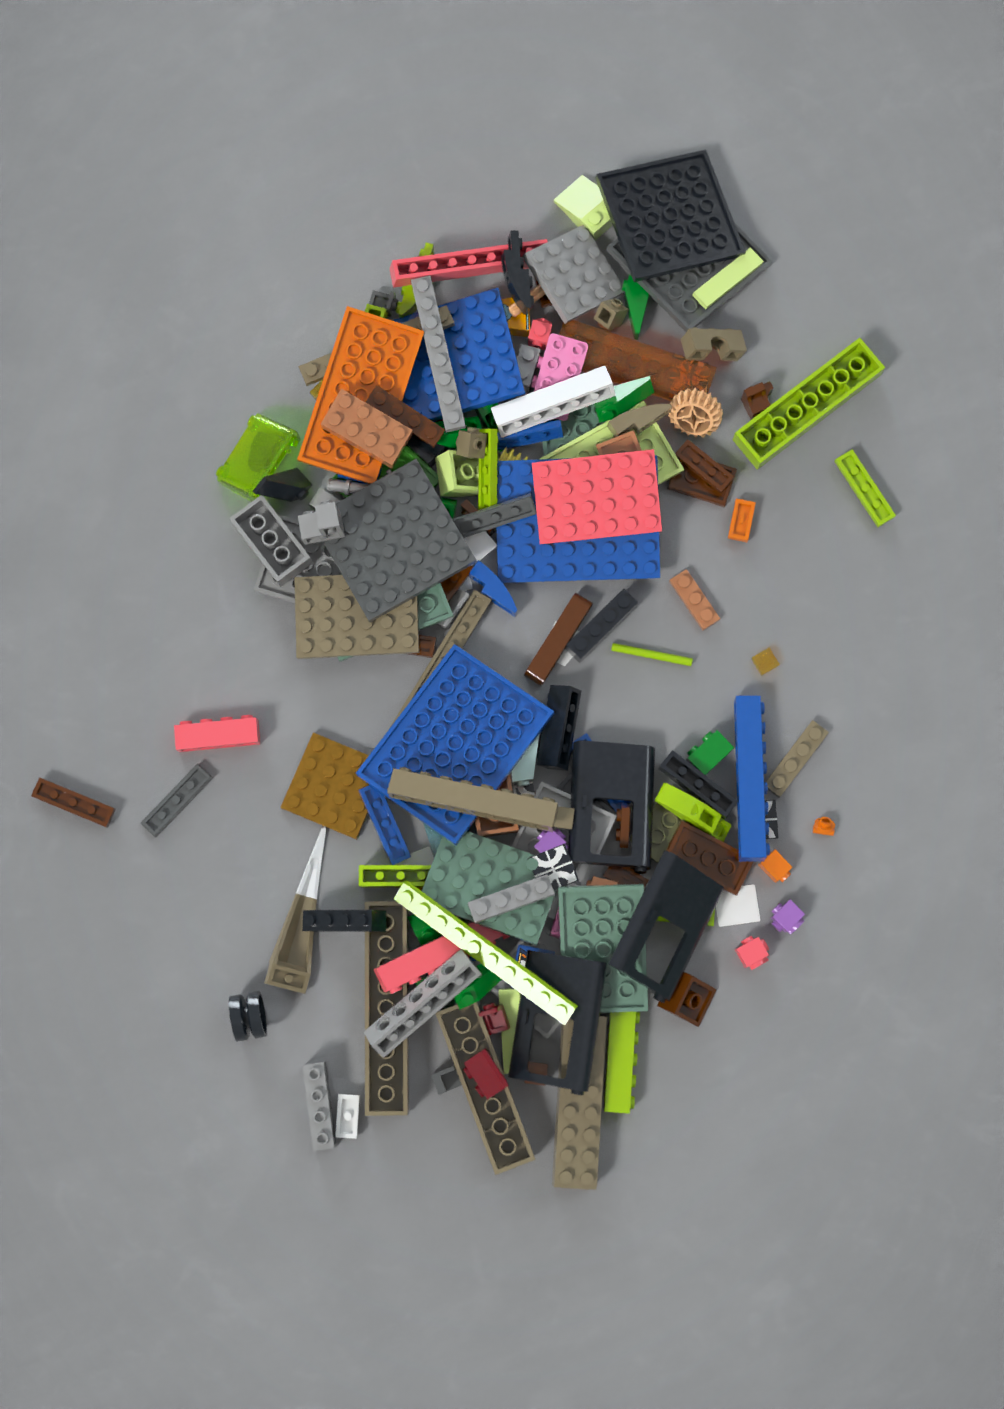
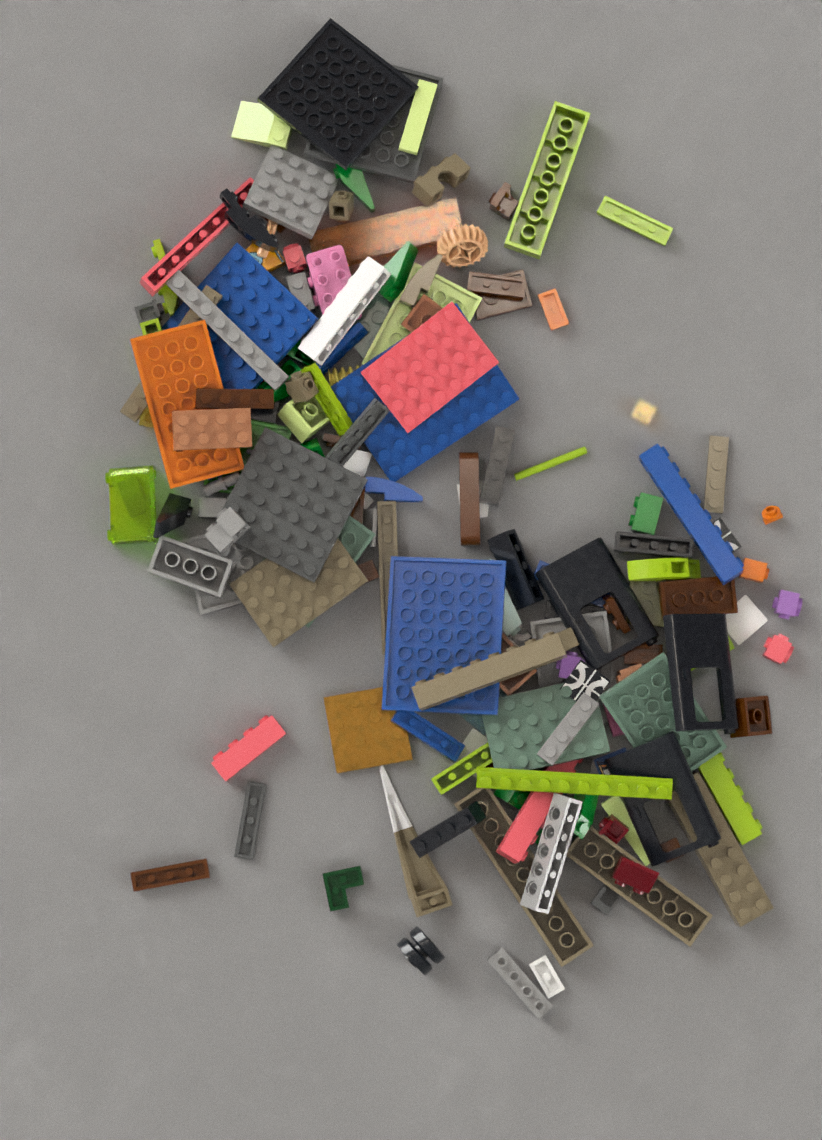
camera: 35 degrees left, 5 degrees up
(213, 907) = (336, 885): none -> dark green plate
(694, 599) = (556, 397): nougat plate -> none

